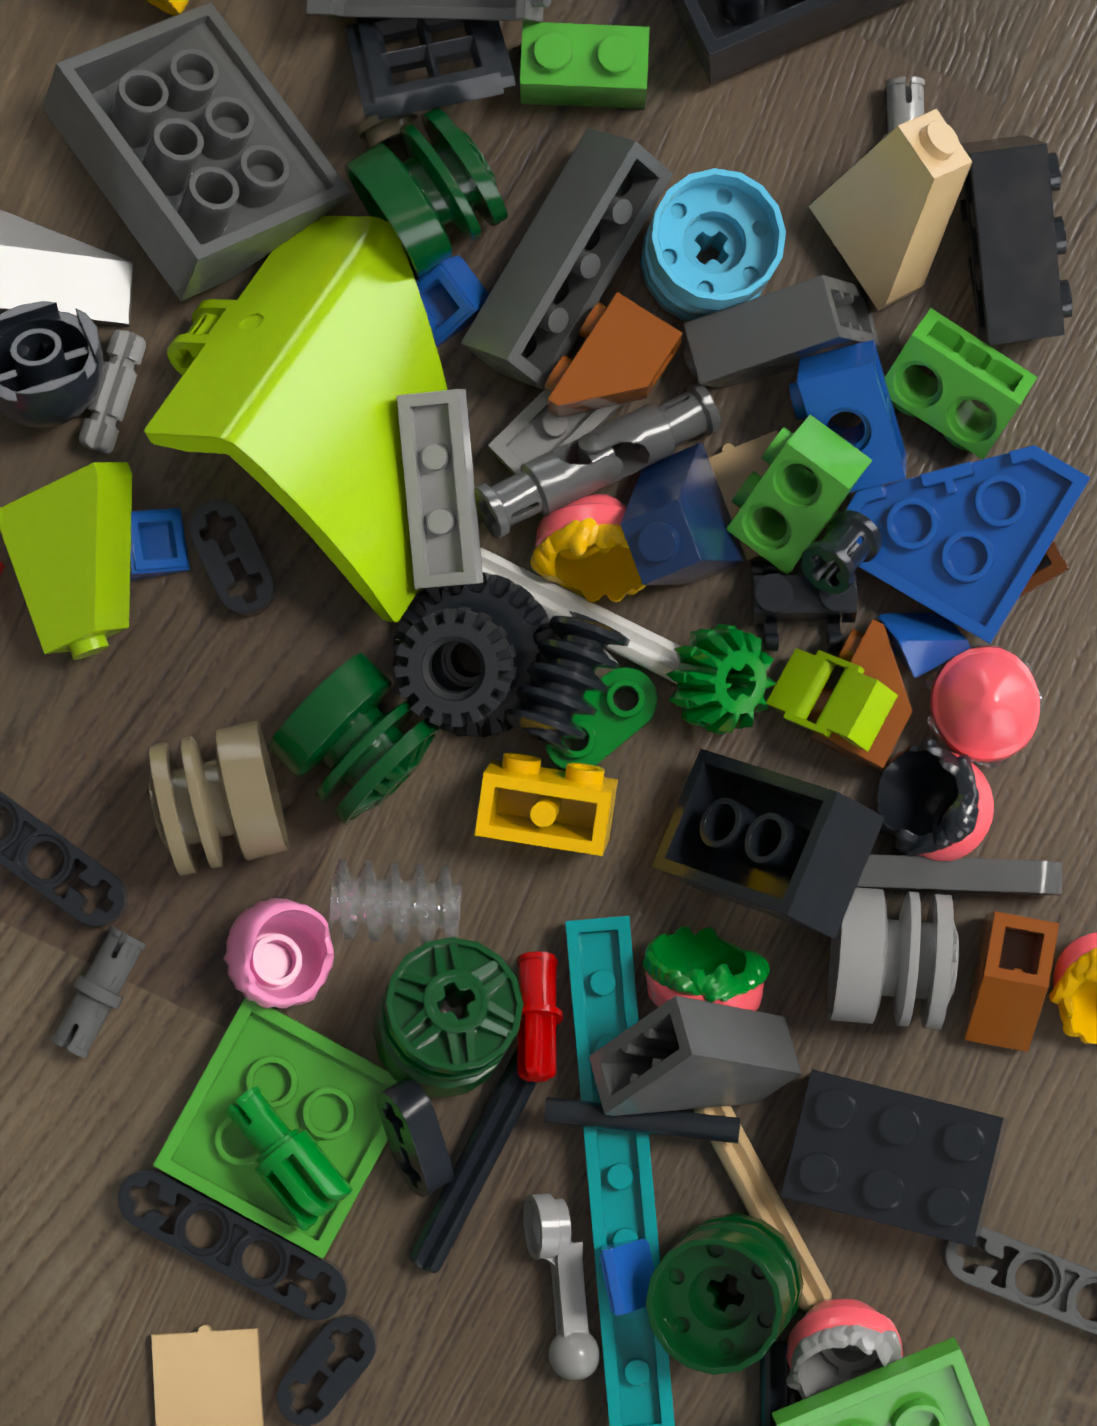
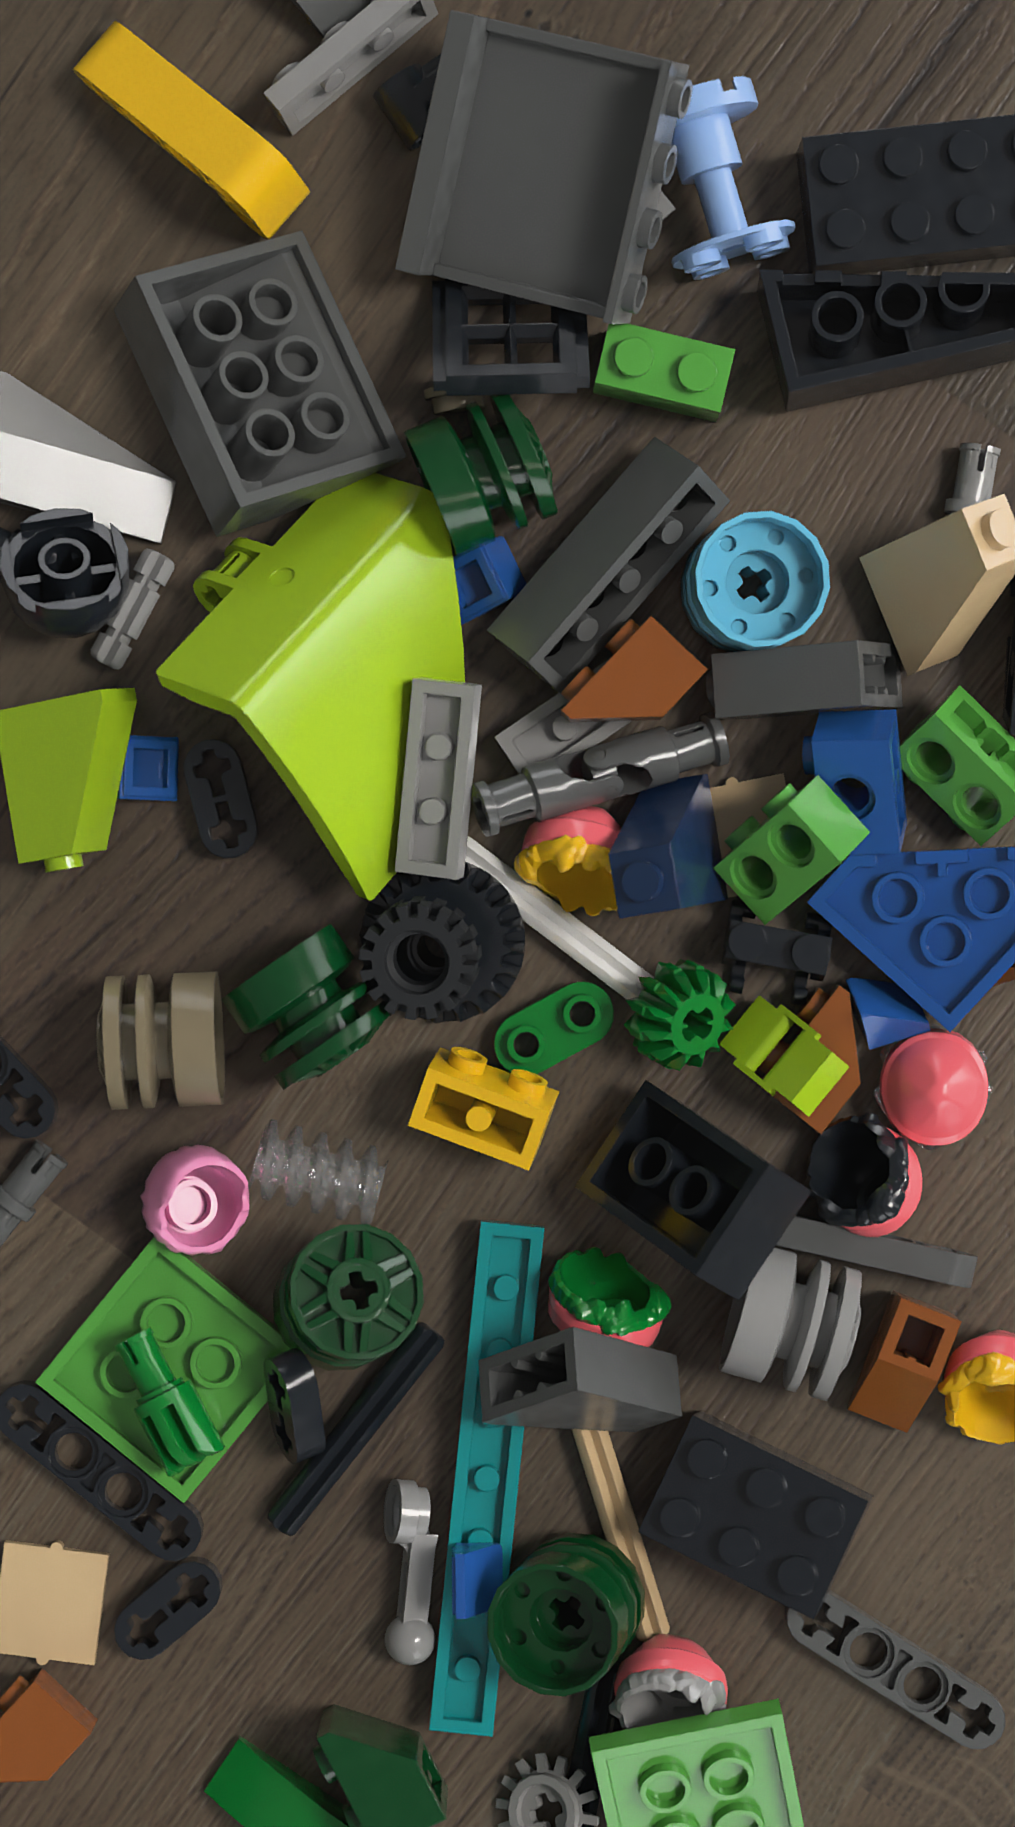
camera: 10 degrees right, 5 degrees up
(538, 1016) = (440, 1291): red axle -> none
(565, 680) = (526, 989): black piece -> none
(664, 1123) = (540, 1438): black bar -> none
(841, 551) = (821, 916): black bush -> none

